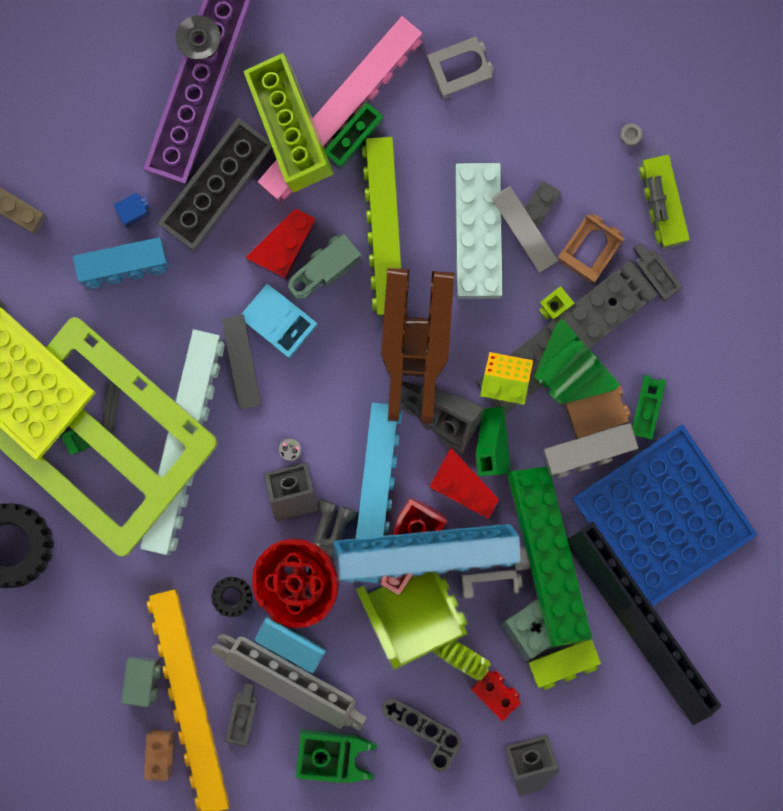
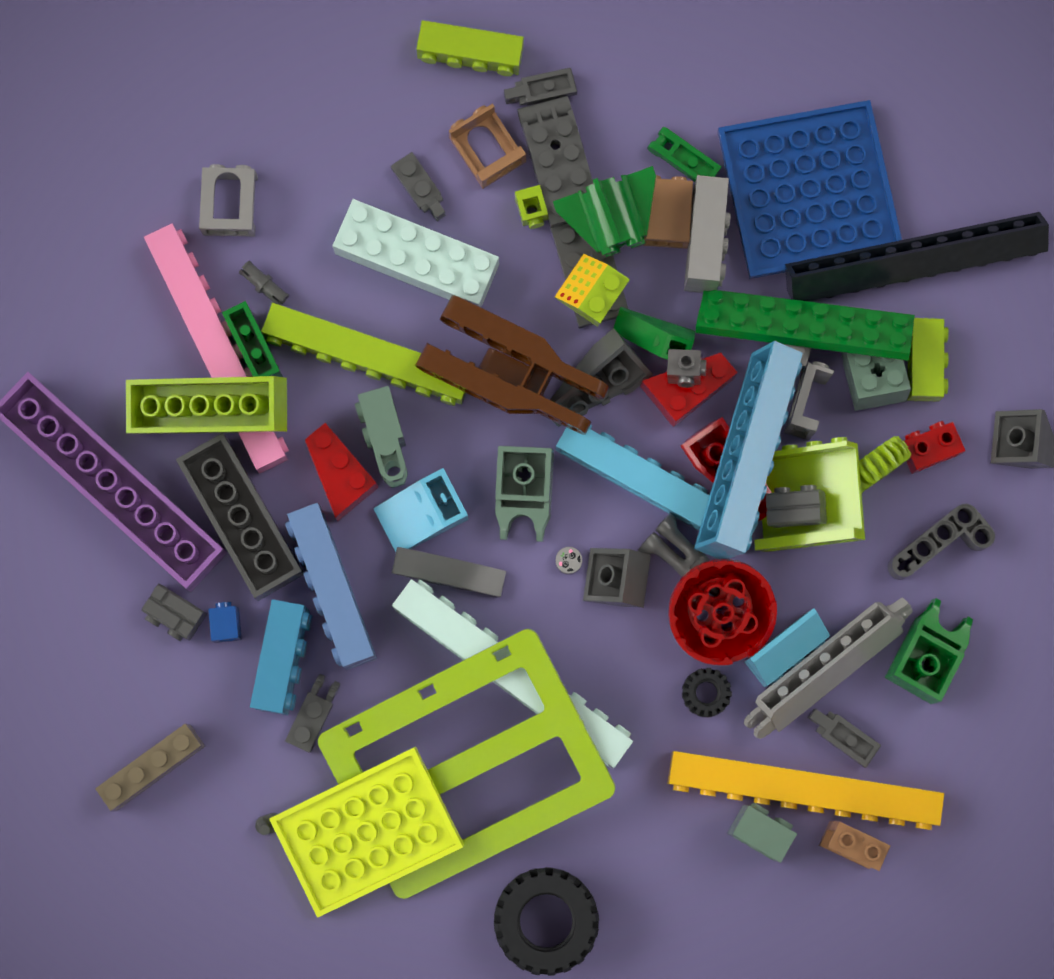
camera: 70 degrees left, 5 degrees down
(74, 443) = (460, 796): green panel -> none
(90, 305) = (312, 716): none -> dark grey hinge
(110, 407) = (435, 739): dark grey axle -> none
(124, 167) = (173, 612): none -> dark grey brick
(191, 278) = (332, 587): none -> medium blue brick
(198, 26) = (53, 461): dark grey dish -> none
(322, 395) = (522, 498): none -> sand green brick
(398, 606) = (796, 507): none -> dark grey brick
(406, 123) = (263, 283): none -> dark grey pin
(472, 476) = (685, 367): none -> flat silver brick
(524, 229) = (436, 203): light grey slope -> none
(631, 134) = (382, 54): light grey tile -> none
(657, 198) = (465, 49): dark grey pin -> none

